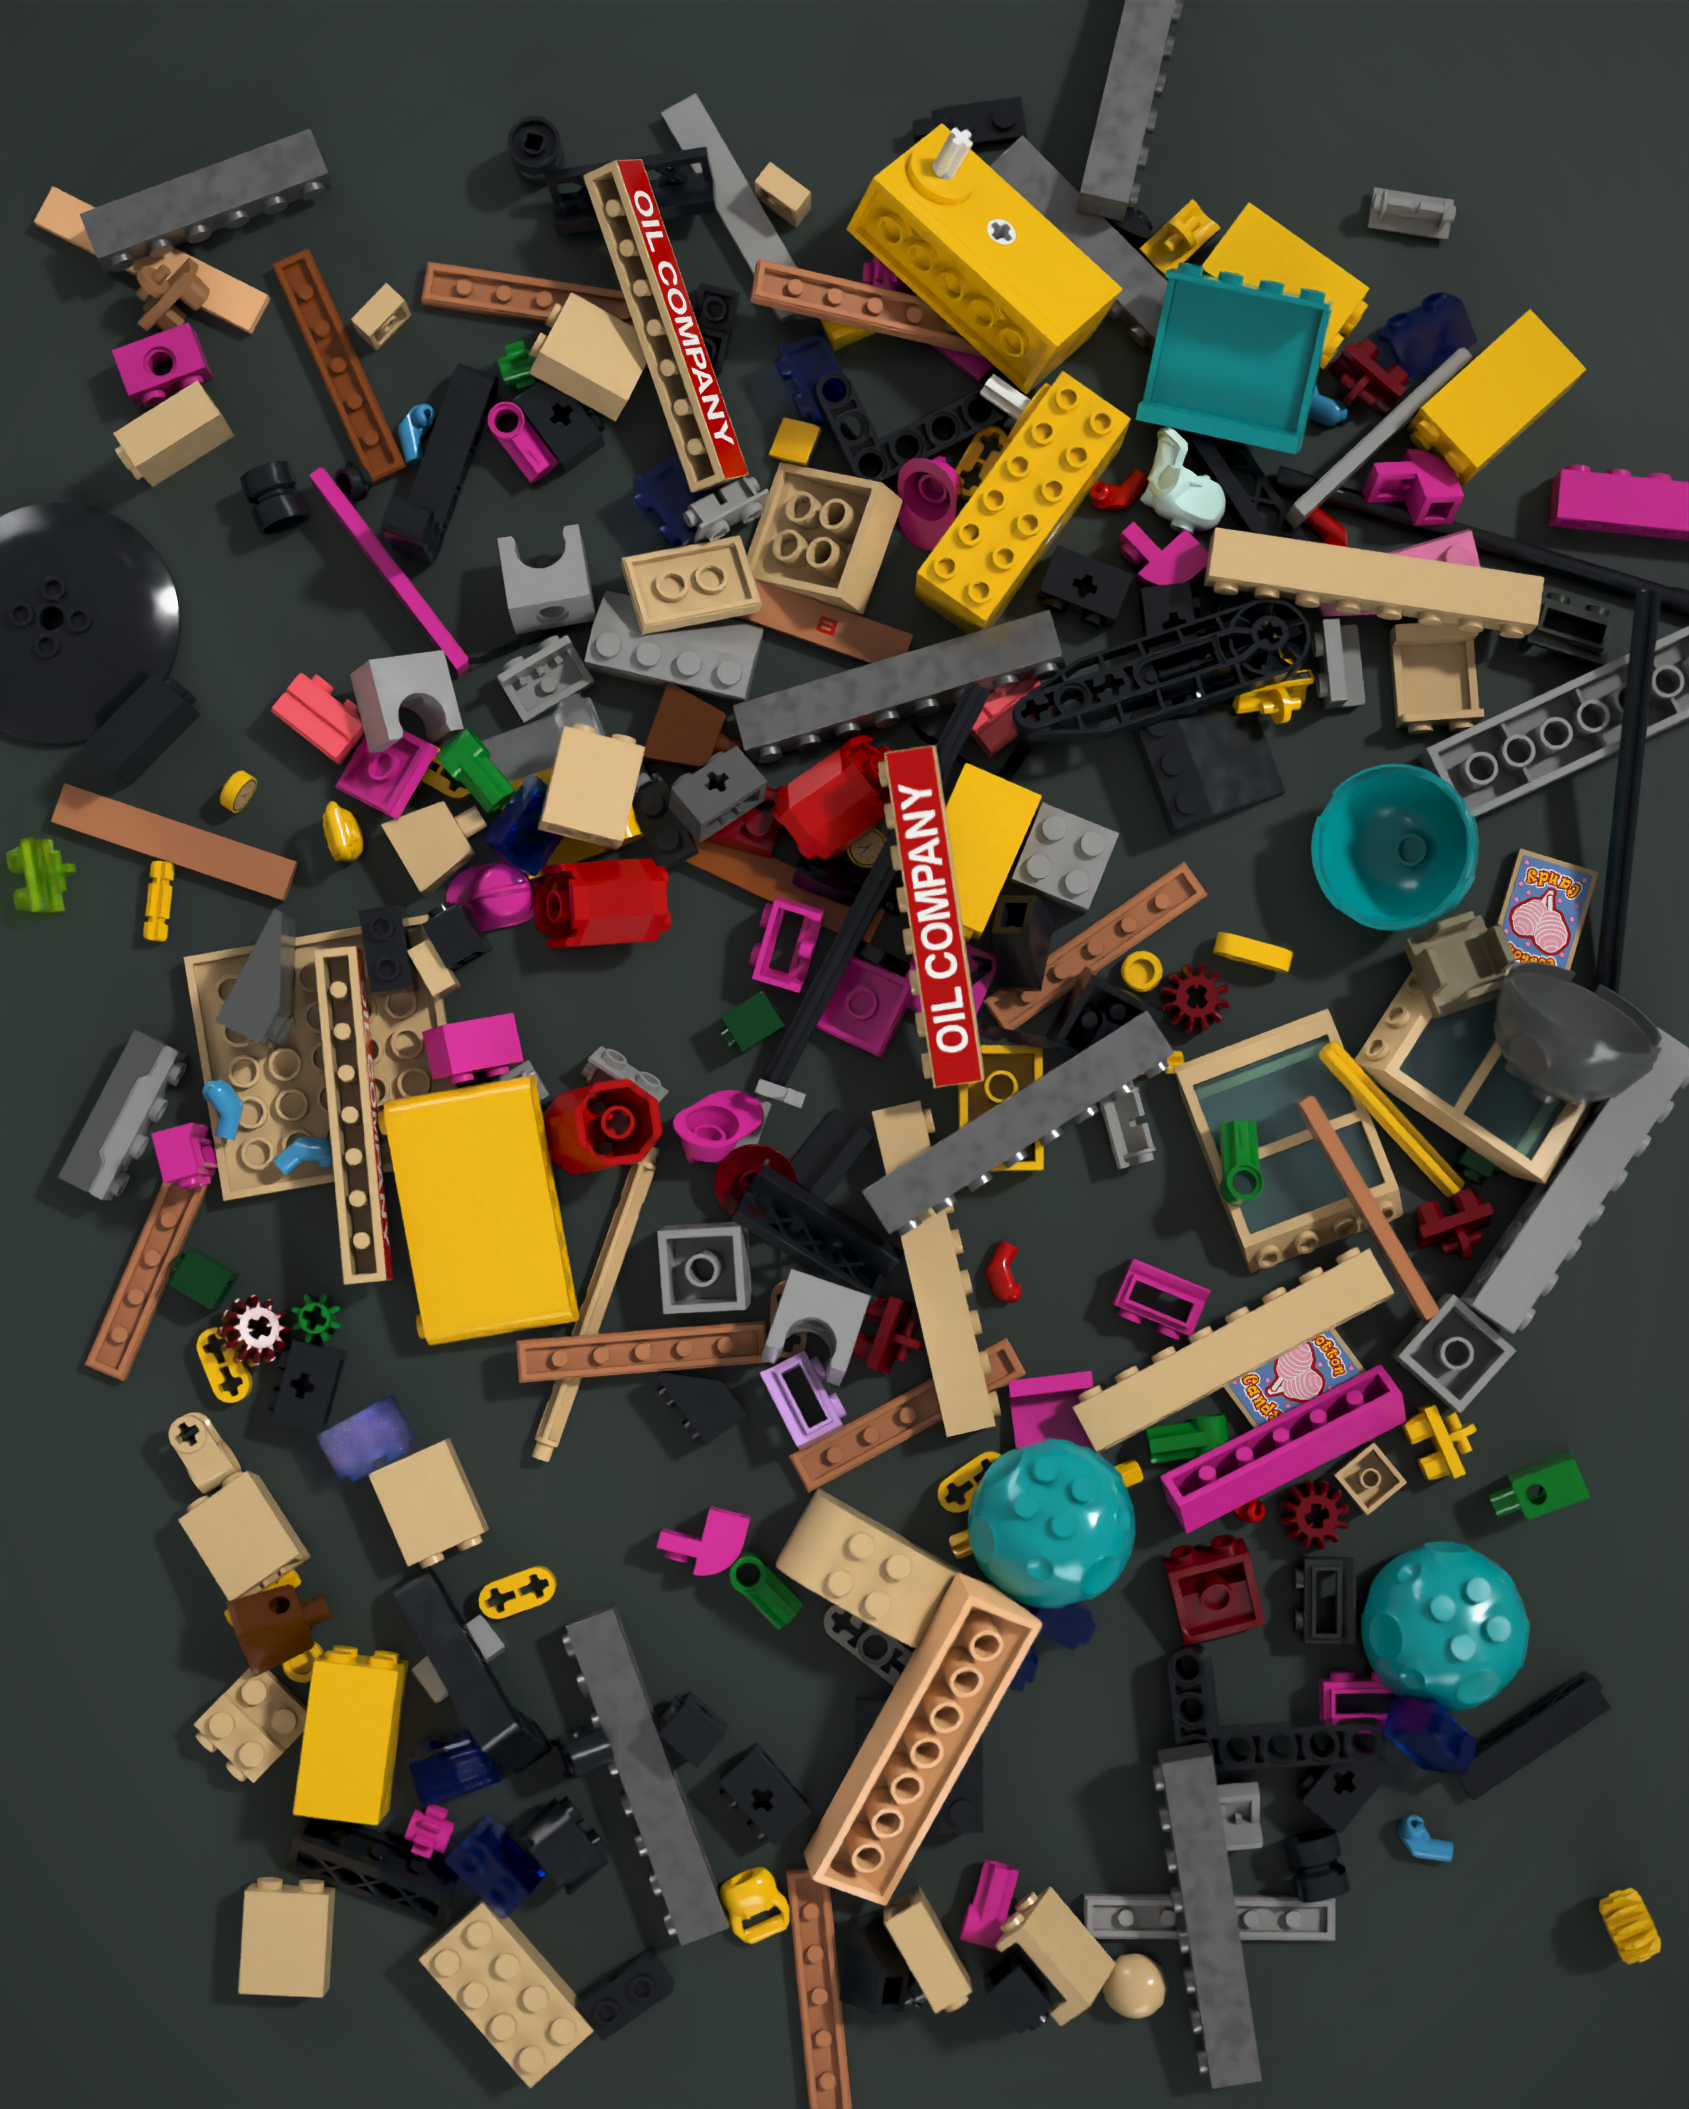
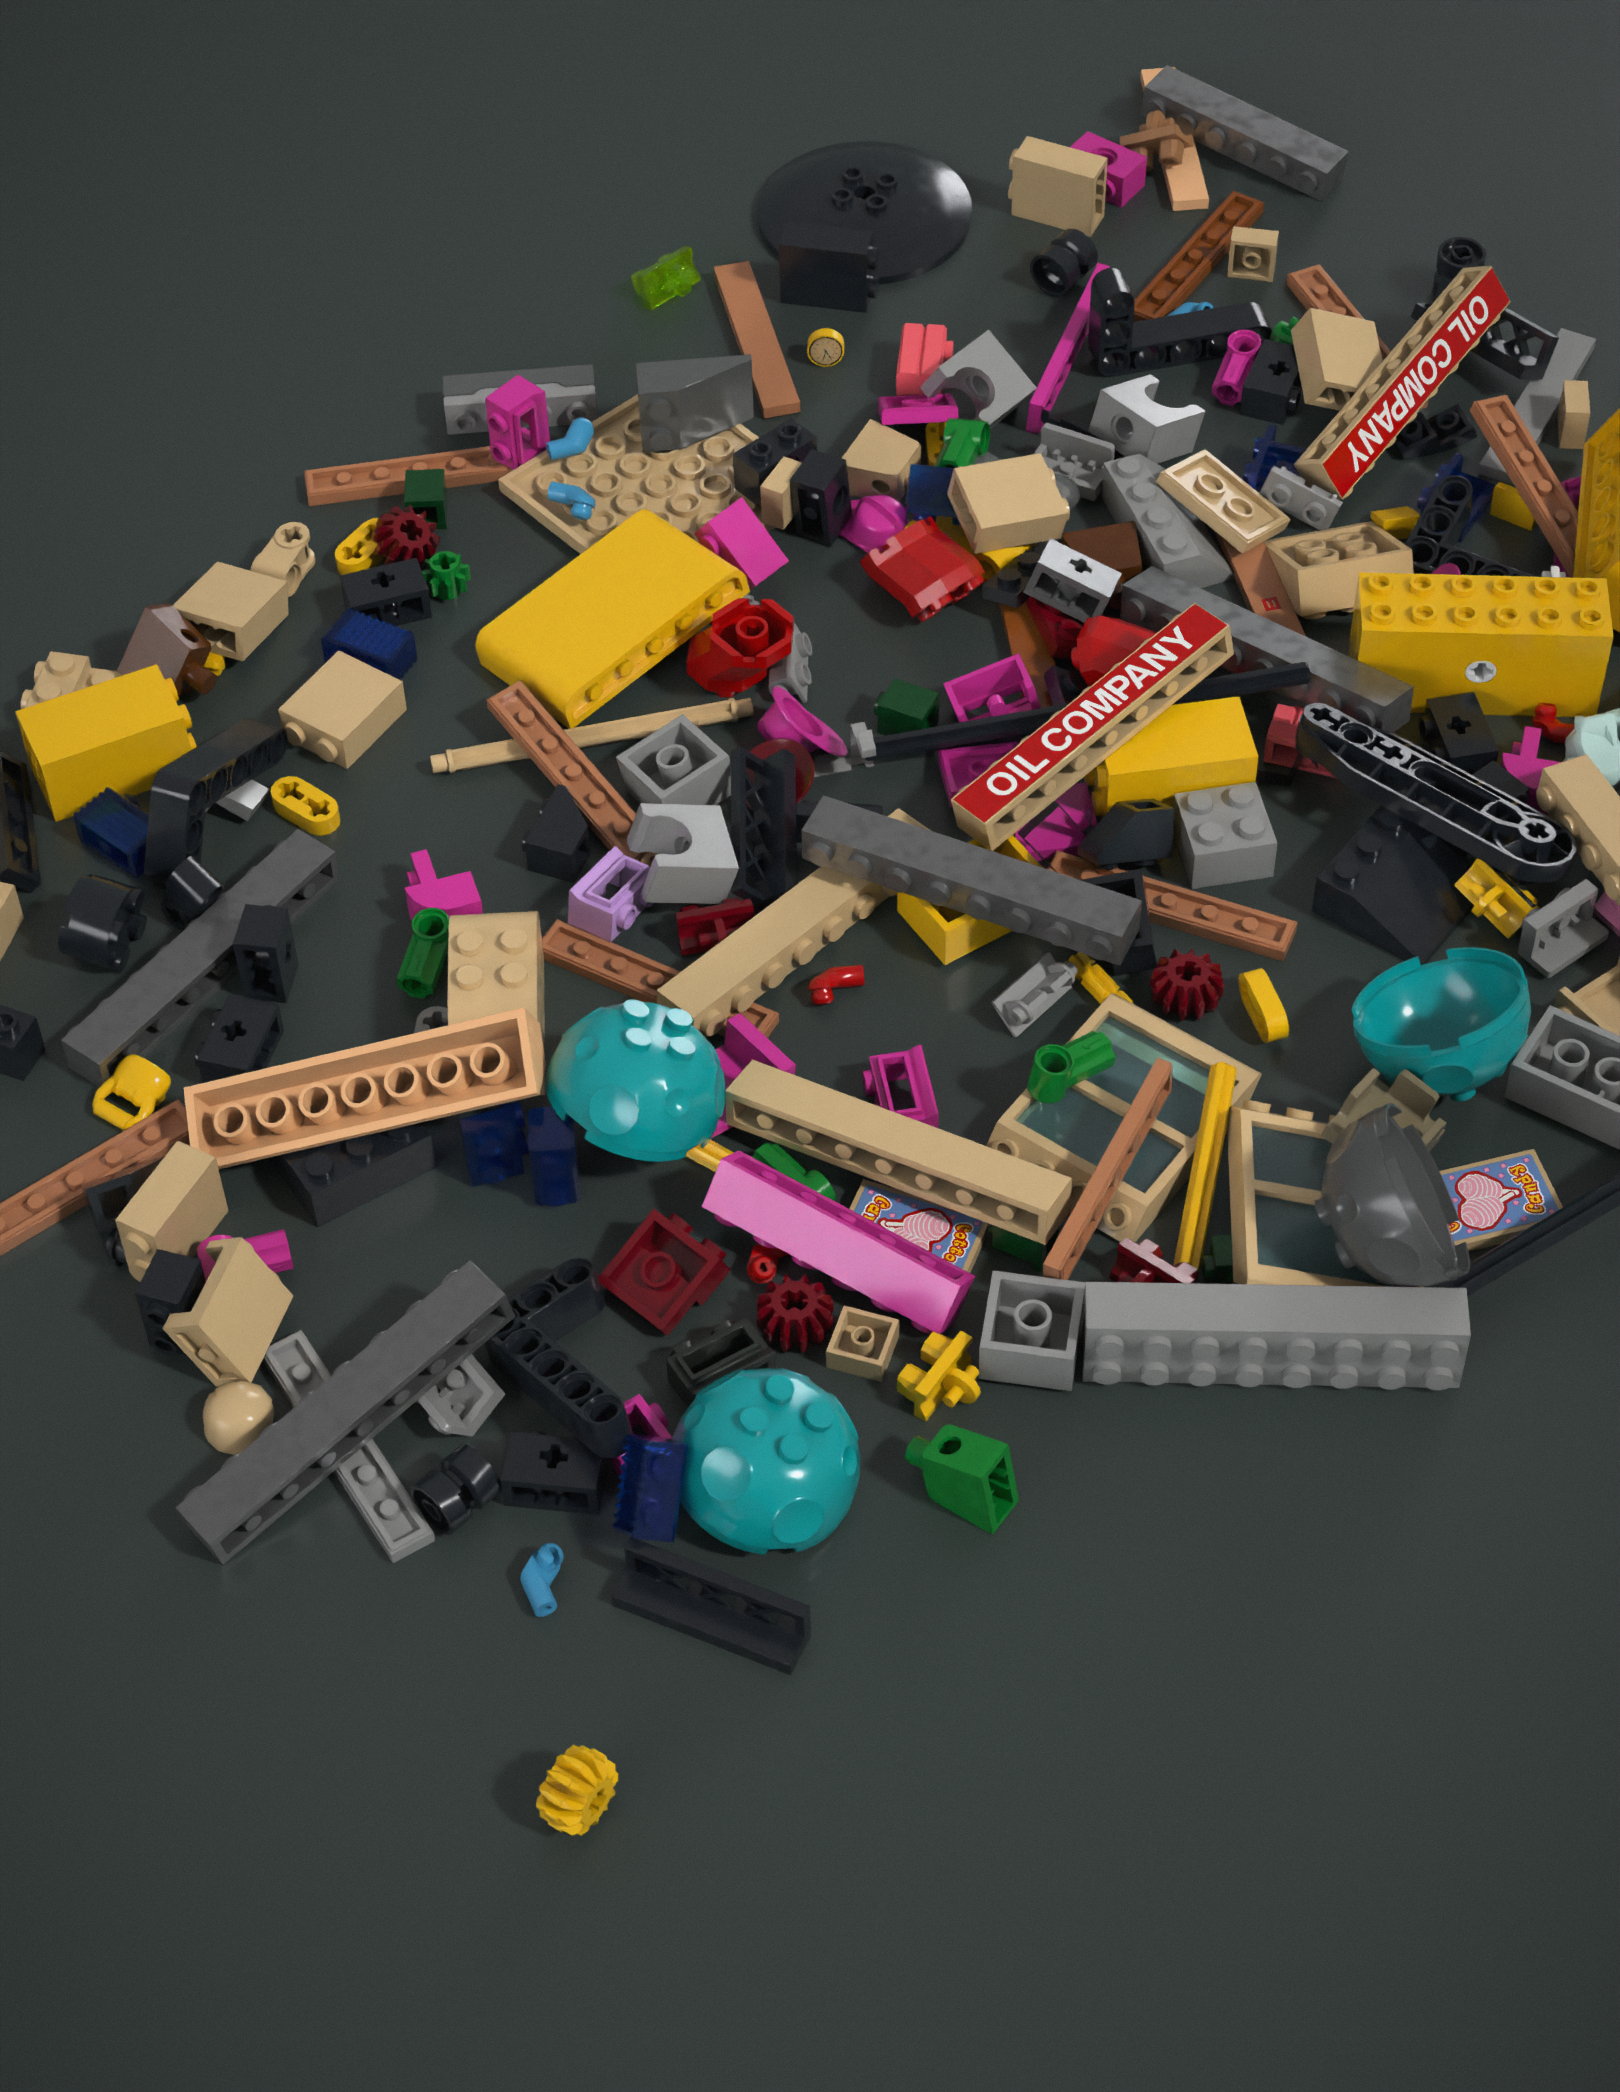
camera: 60 degrees right, 35 degrees down
(158, 901) = (707, 347): yellow axle -> none
(342, 833) = (849, 414): yellow piece -> none
(353, 1115) = (651, 482): tan brick -> none
(429, 1831) = (55, 839): dark pink gear -> none
(495, 1867) = (47, 889): clear blue bracket -> none
(1141, 971) = (1177, 938): yellow tile -> none

